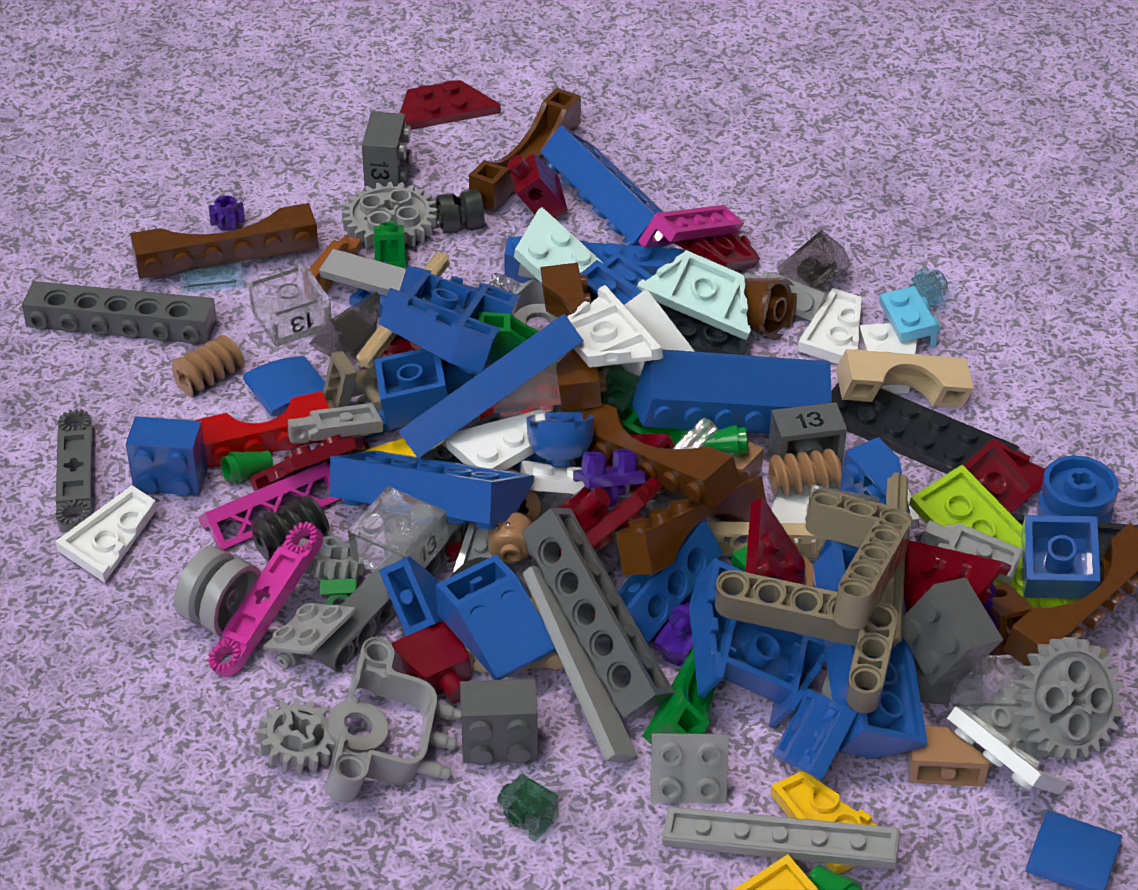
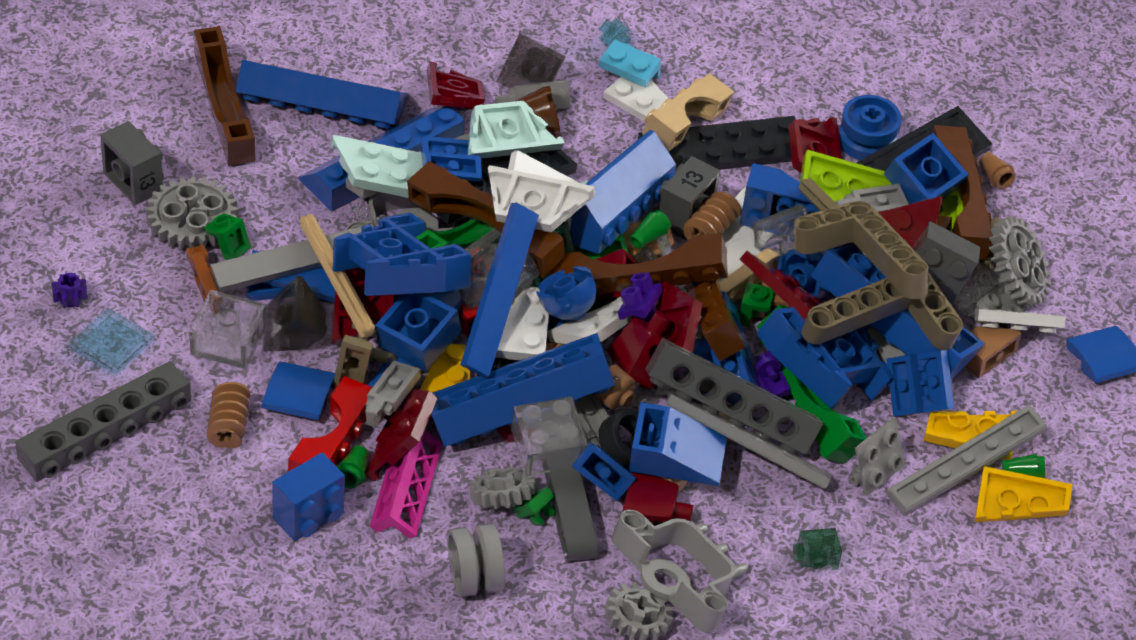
camera: 50 degrees left, 5 degrees up
(73, 451) = (257, 568): dark grey piece -> none
(108, 533) = (329, 582): white wing -> none
(168, 252) = (78, 350): reddish brown arch -> none
(254, 615) = (507, 517): dark pink piece -> none
(274, 527) = (446, 486): pearl dark grey piece -> none
(307, 631) = (560, 542): light grey hinge -> none
(445, 104) = (99, 96): dark red wing -> none
(460, 210) = (242, 174): pearl dark grey wheel -> none
(499, 721) = (748, 510): dark grey brick -> none
(532, 178) = (275, 120): dark red torso -> none
(690, 224) = (434, 85): dark pink fence -> none
(696, 439) = (639, 242): clear axle -> none
(833, 327) = (593, 107): white wing -> none

